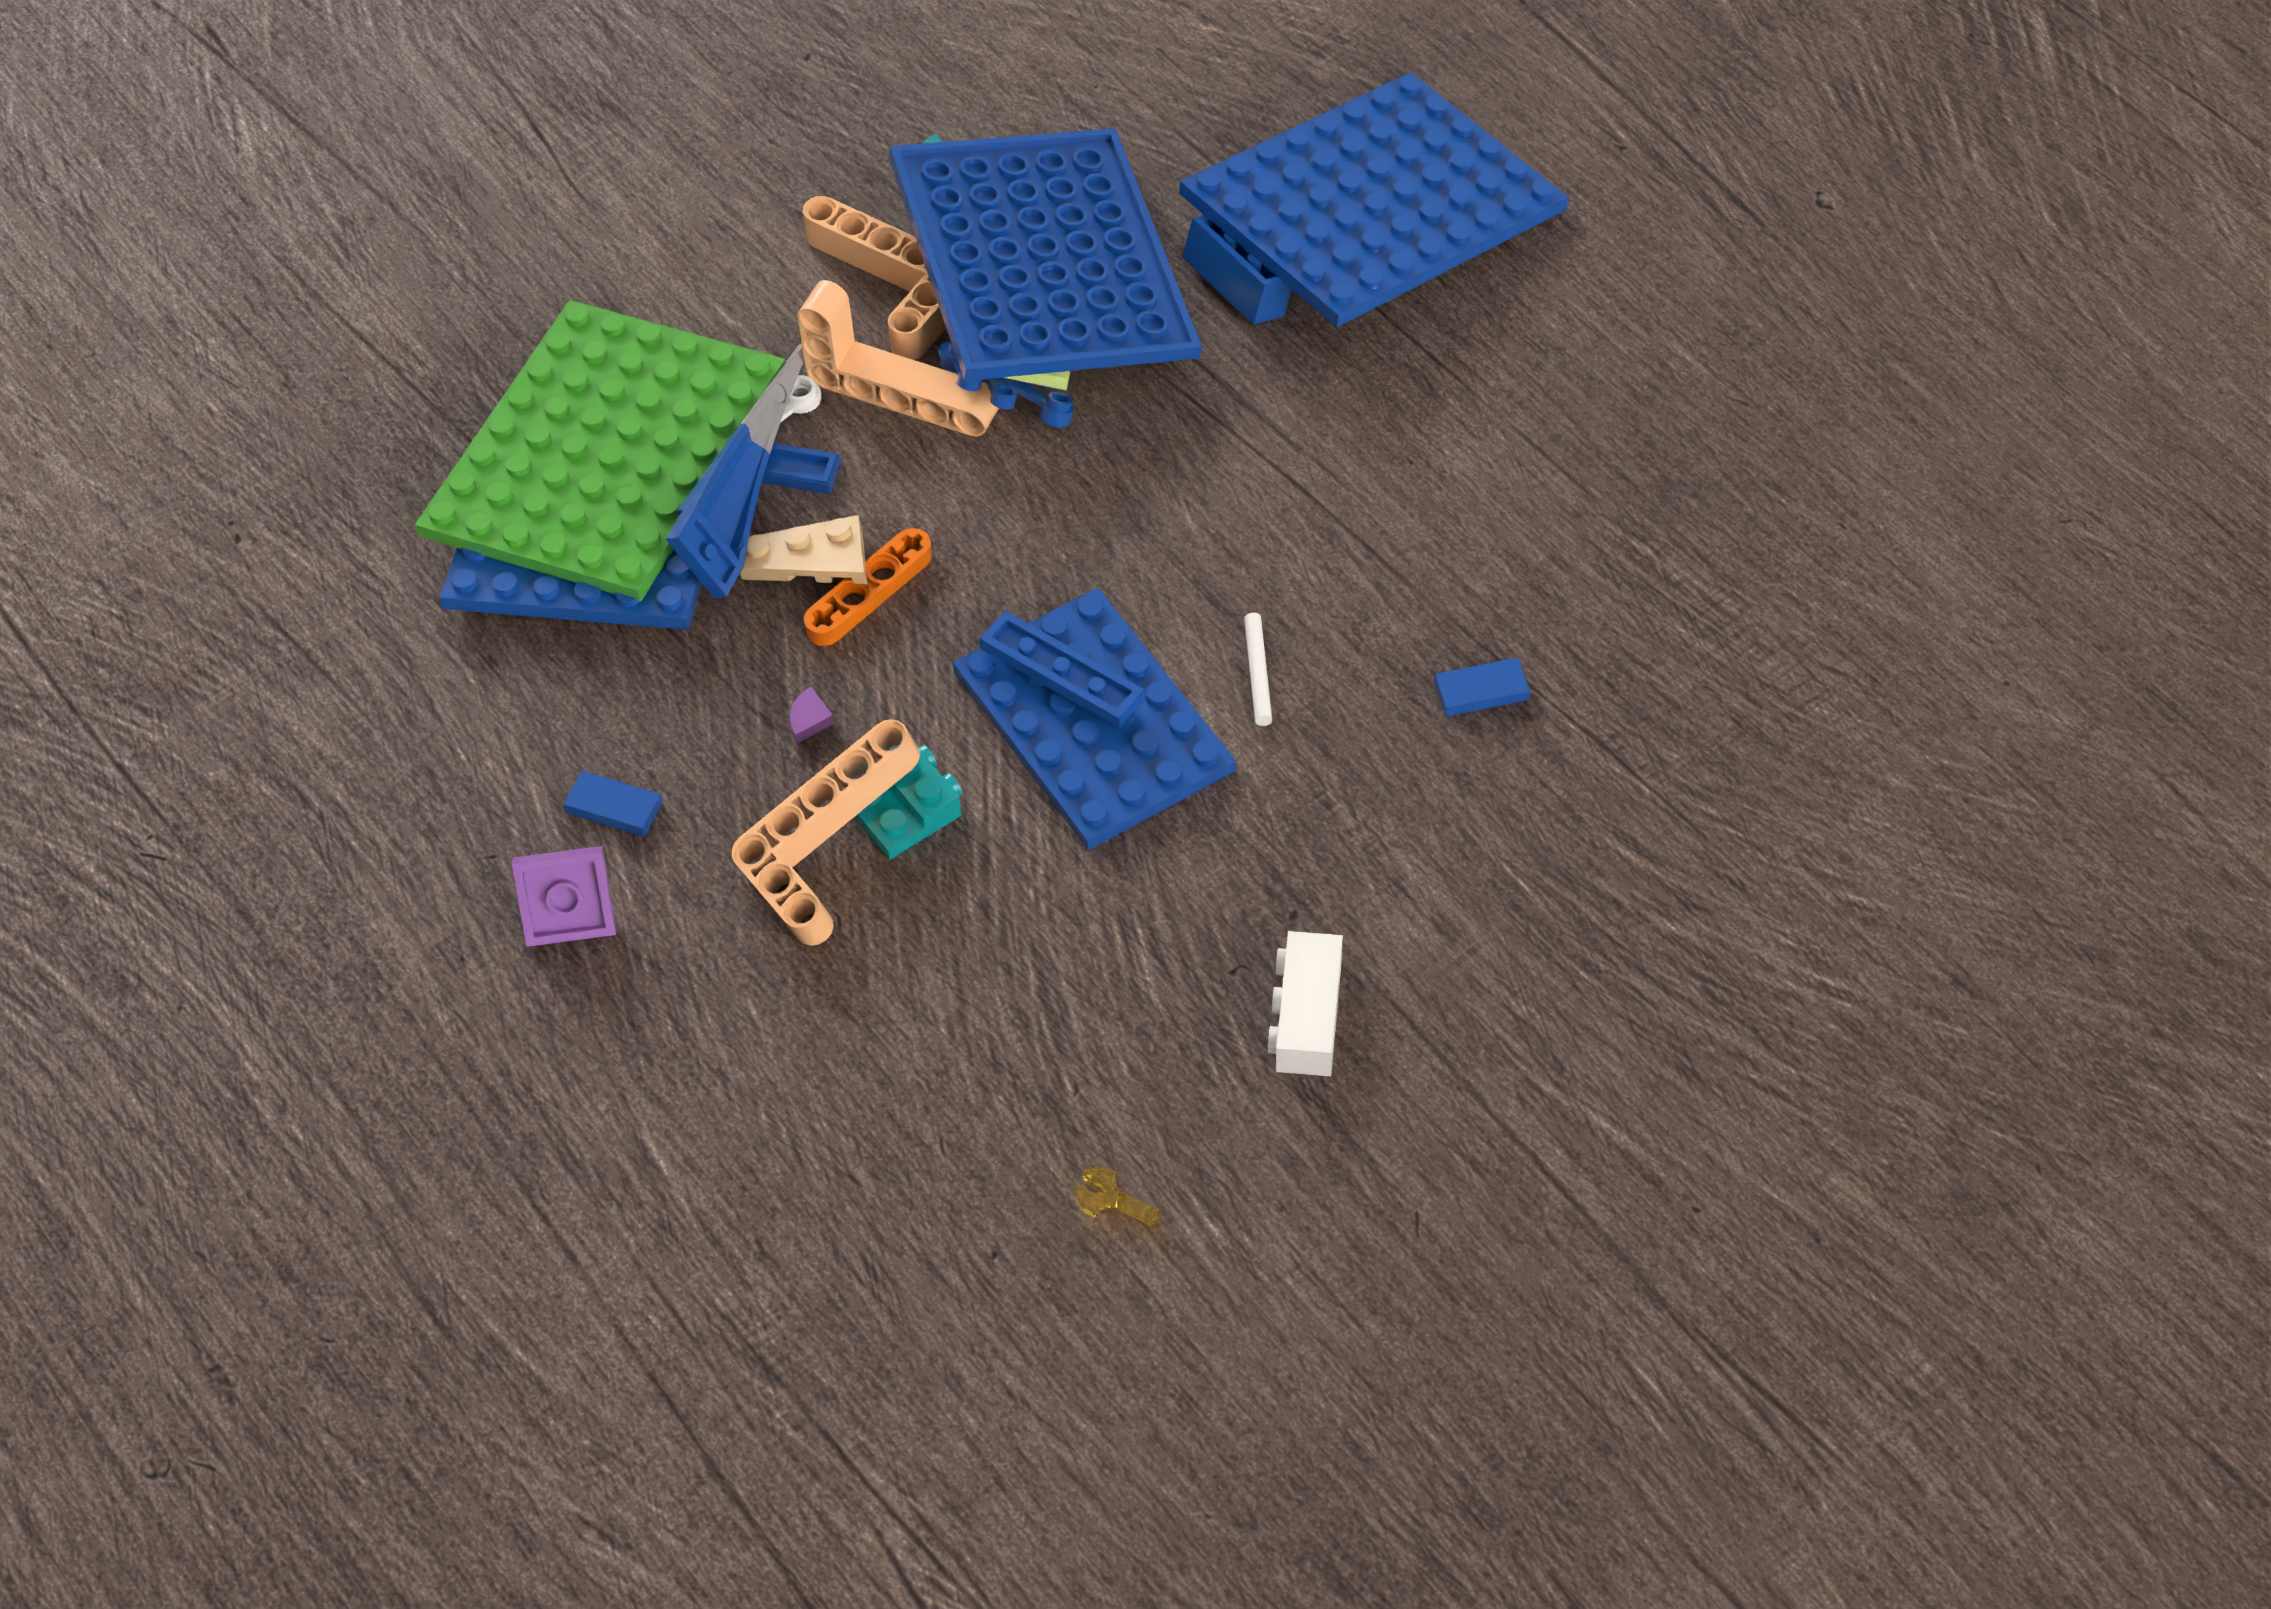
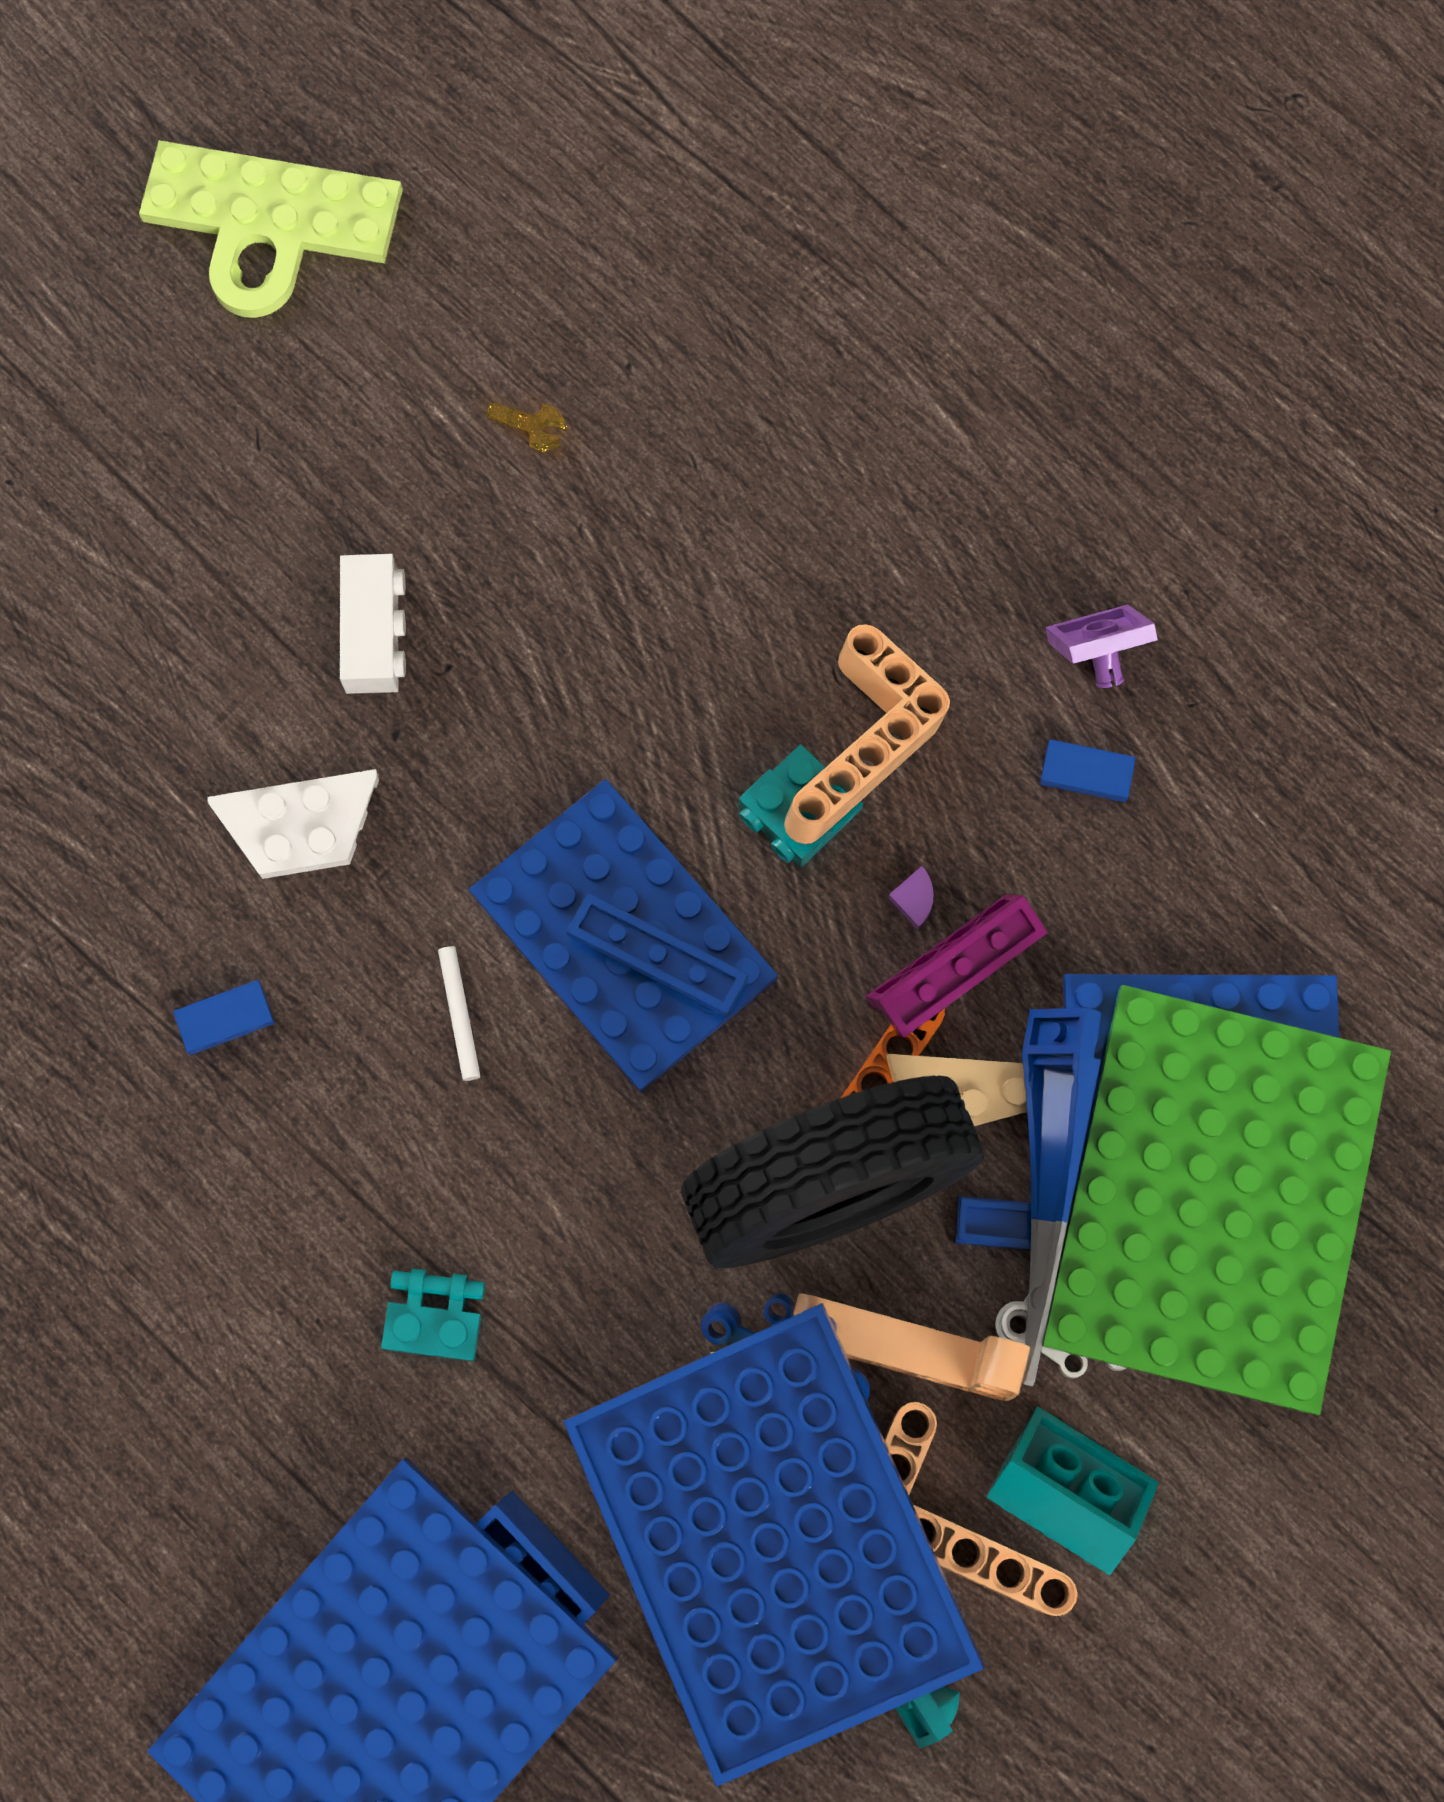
camera: 170 degrees right, 20 degrees up
(774, 275) = (1073, 1491): none -> teal slope
(781, 637) = (957, 963): none -> magenta fence
(924, 368) = (831, 1170): none -> black tyre
(1310, 440) = (433, 1330): none -> teal plate
(1384, 1484) = (272, 204): none -> yellowish green plate
(1399, 841) = (298, 823): none -> white wing

